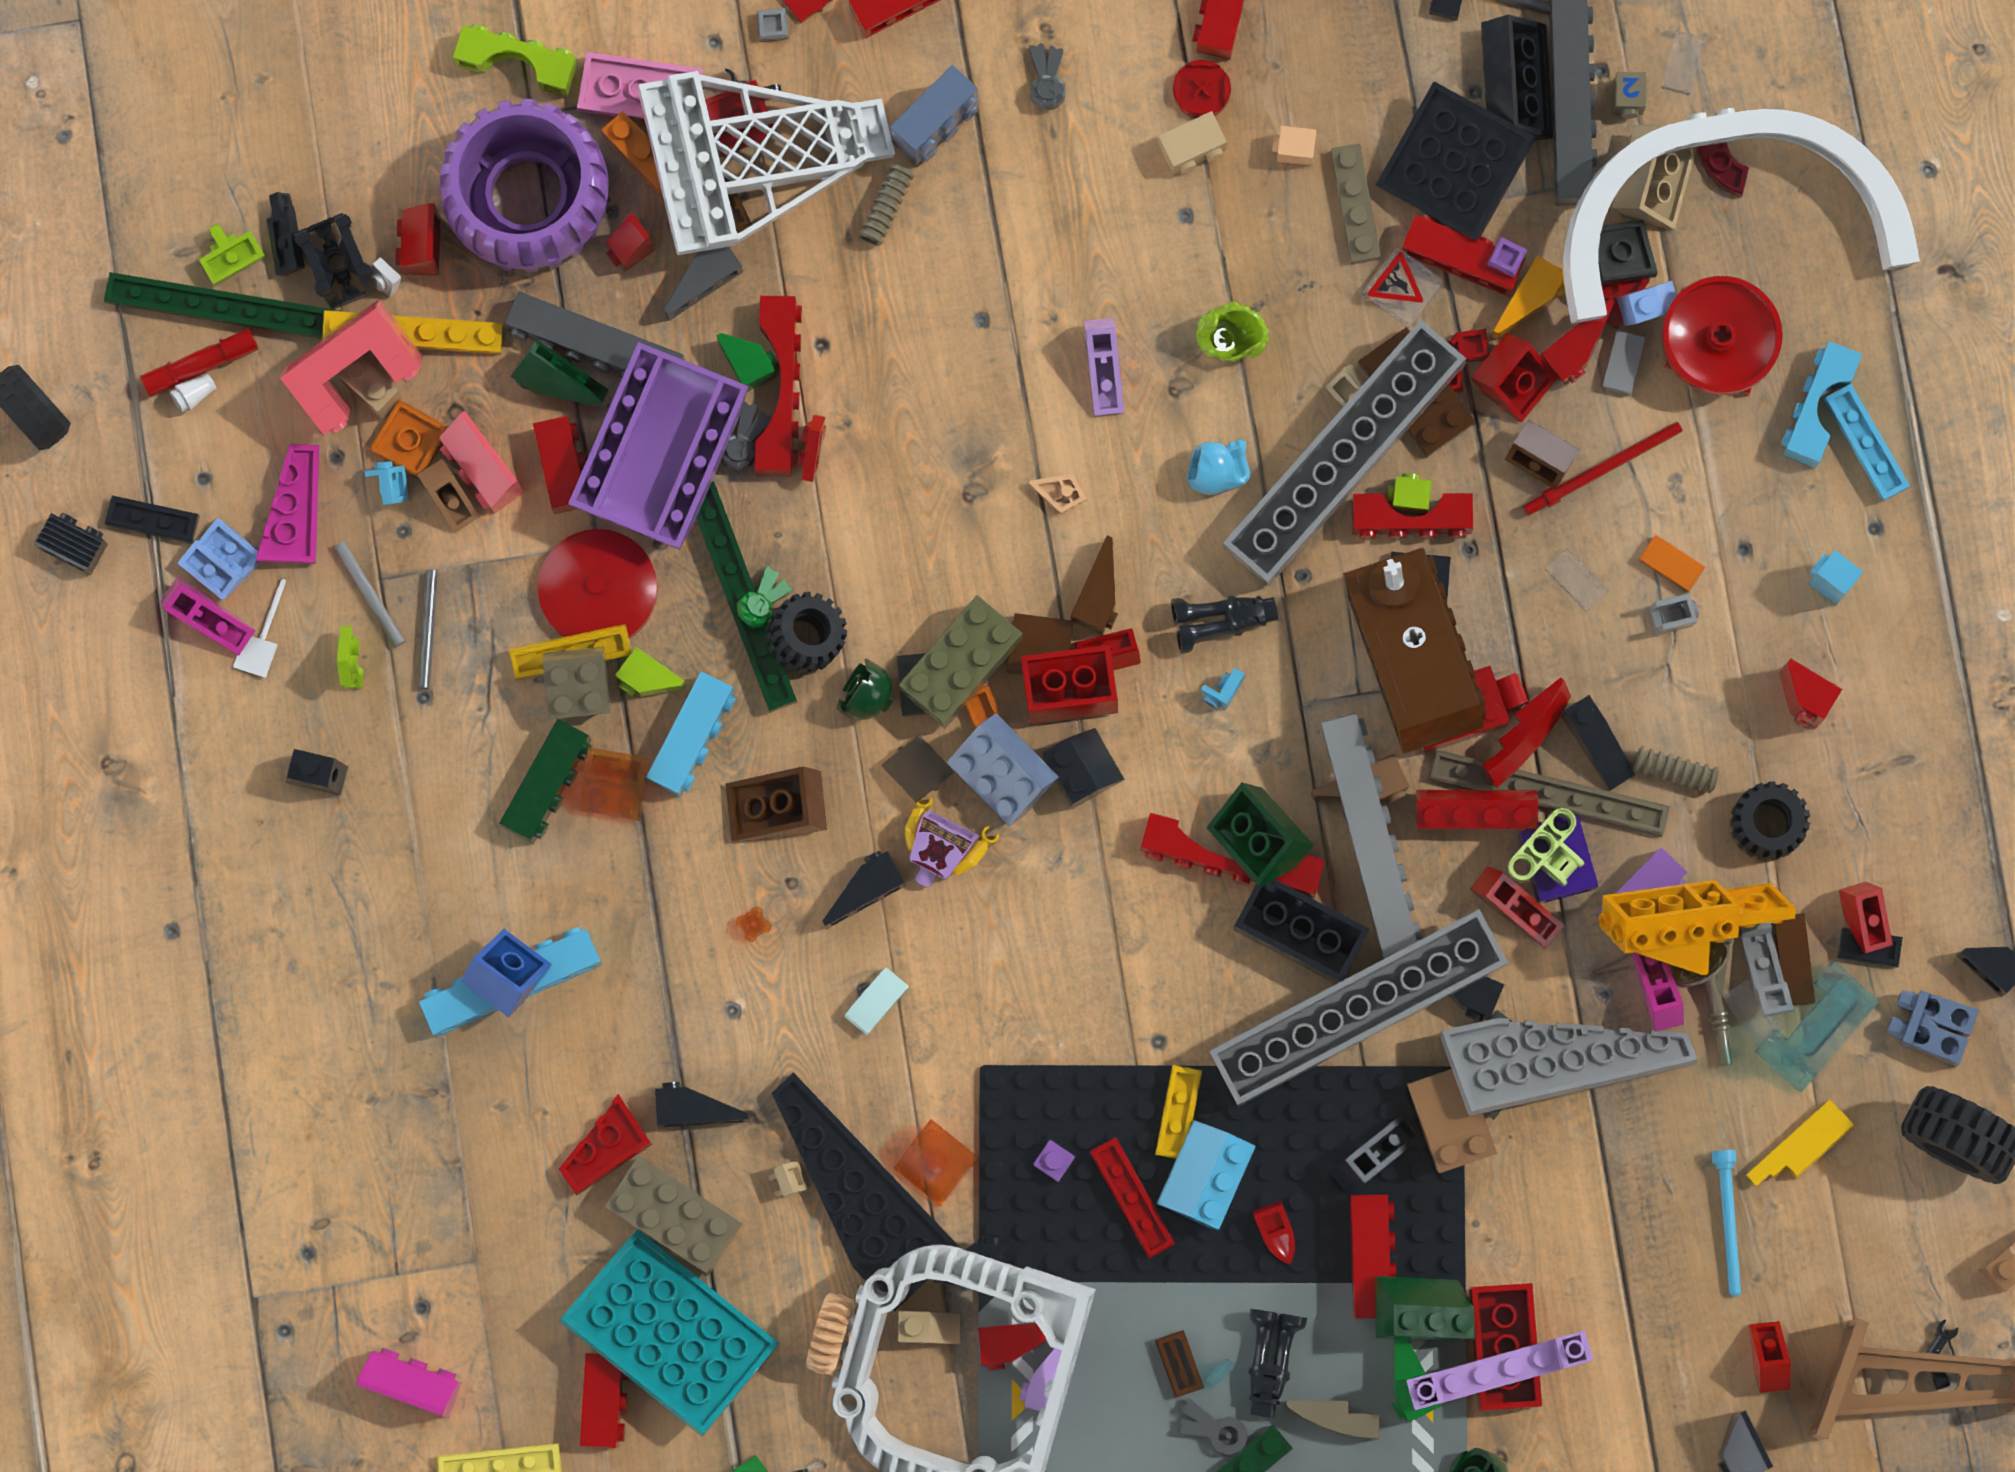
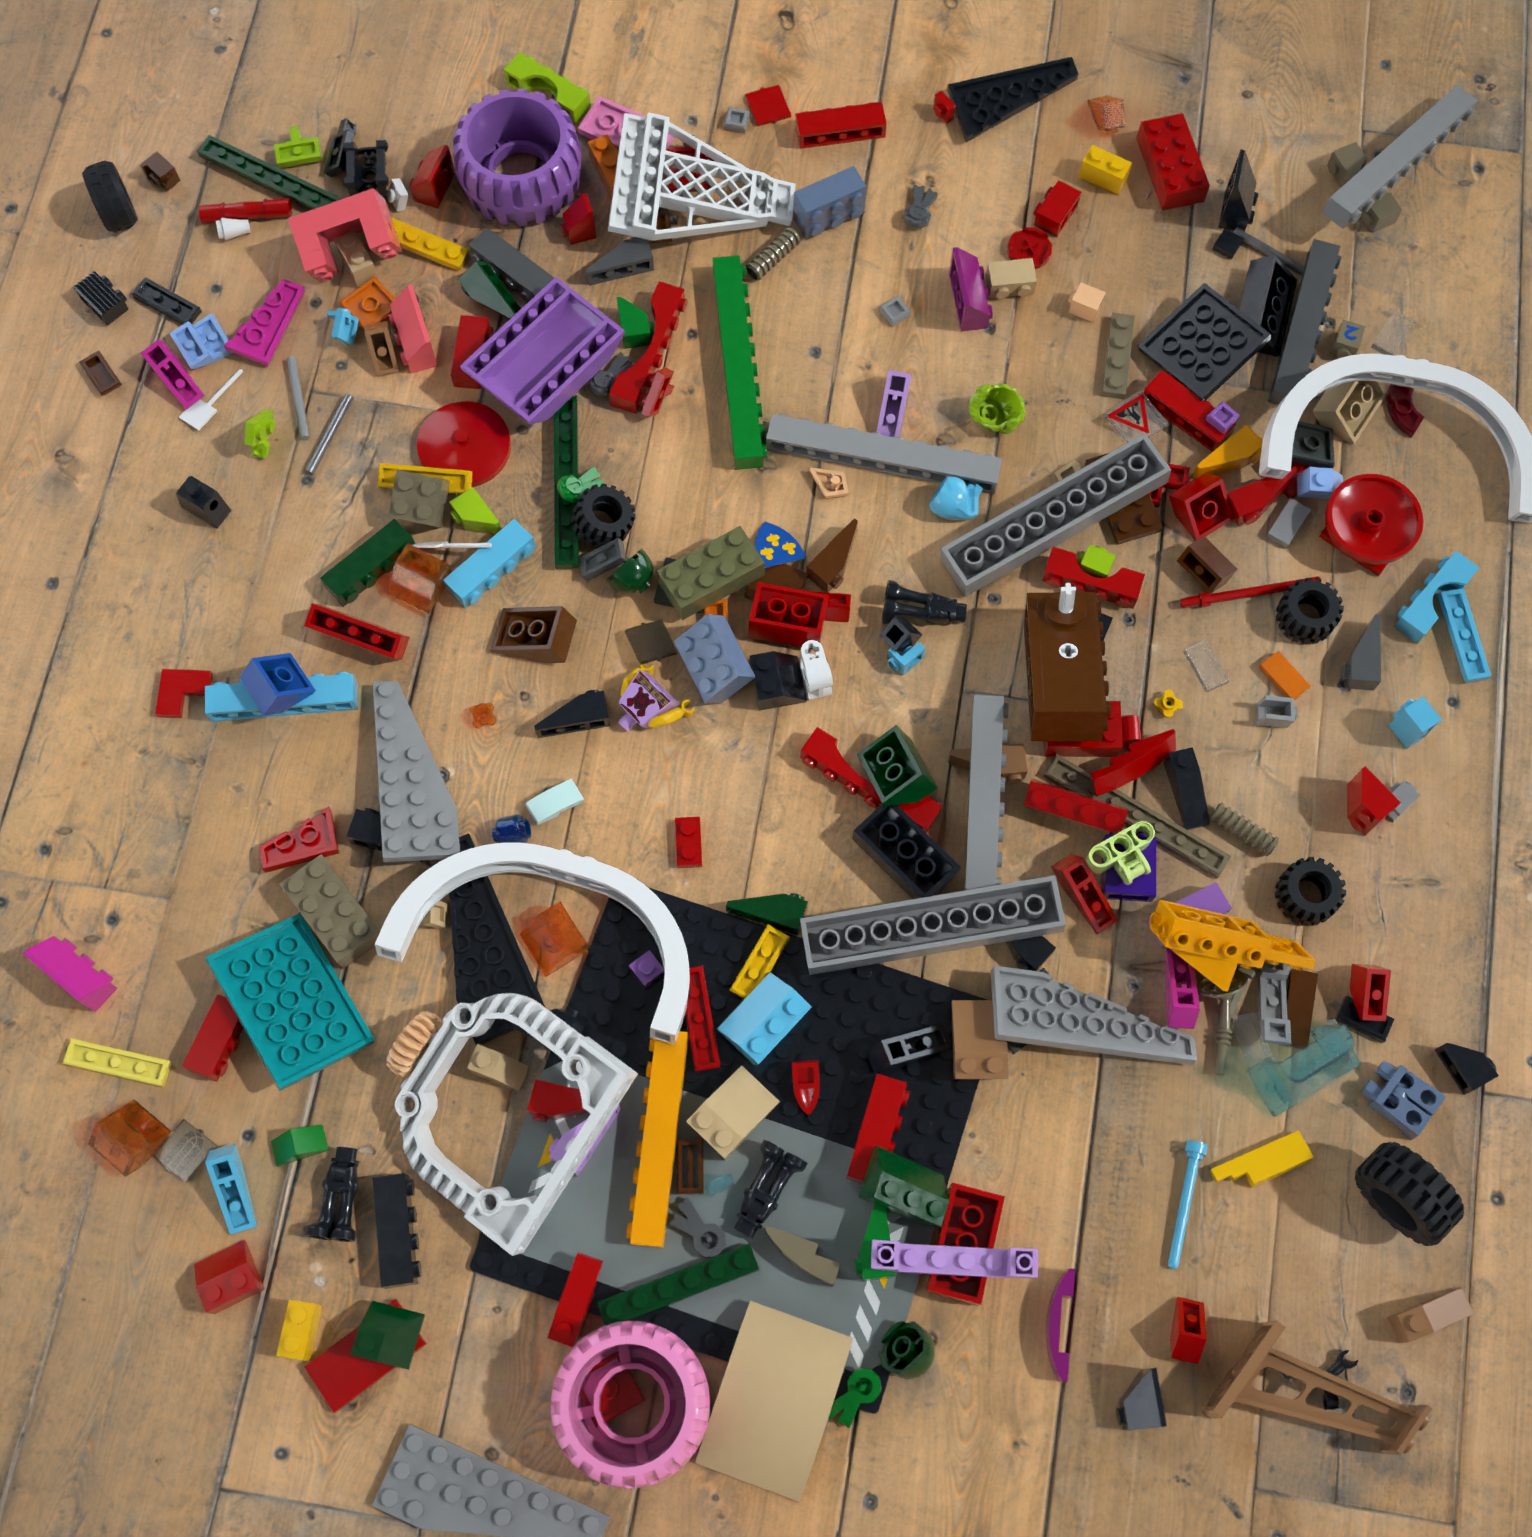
camera: 15 degrees right, 10 degrees down
(70, 344) = (160, 171): none -> reddish brown brick
(112, 642) = (100, 373): none -> reddish brown tile
(379, 1006) = (174, 687): none -> red tile
(568, 874) = (356, 631): none -> red brick
(618, 732) = (444, 544): none -> white piece
(715, 1053) = (413, 798): none -> light grey wing
(824, 685) = (602, 559): none -> dark grey plate
(841, 1053) = (511, 830): none -> clear blue head
(893, 368) = (738, 364): none -> green brick
(930, 1076) = (561, 866): none -> white arch
(1023, 596) = (777, 545): none -> blue sticker
(1047, 996) = (688, 842): none -> red plate
(1062, 232) = (895, 311): none -> light grey tile
(1111, 434) = (881, 452): none -> light grey brick
(1130, 750) = (815, 671): none -> white piece
(1136, 1345) = (658, 1143): none -> light orange brick
(1148, 180) = (969, 291): none -> magenta slope
(1177, 1045) = (776, 910): none -> dark green slope
(1206, 1289) = (733, 1112): none -> tan slope
(1209, 665) = (900, 634): none -> black brick
(1538, 646) = (1168, 710): none -> yellow plate
(1642, 1435) = (1058, 1360): none -> magenta slope
(1692, 454) = (1316, 595): none -> black tyre
(1758, 517) = (1364, 664): none -> dark grey slope
(1843, 672) = (1405, 794): none -> light grey window

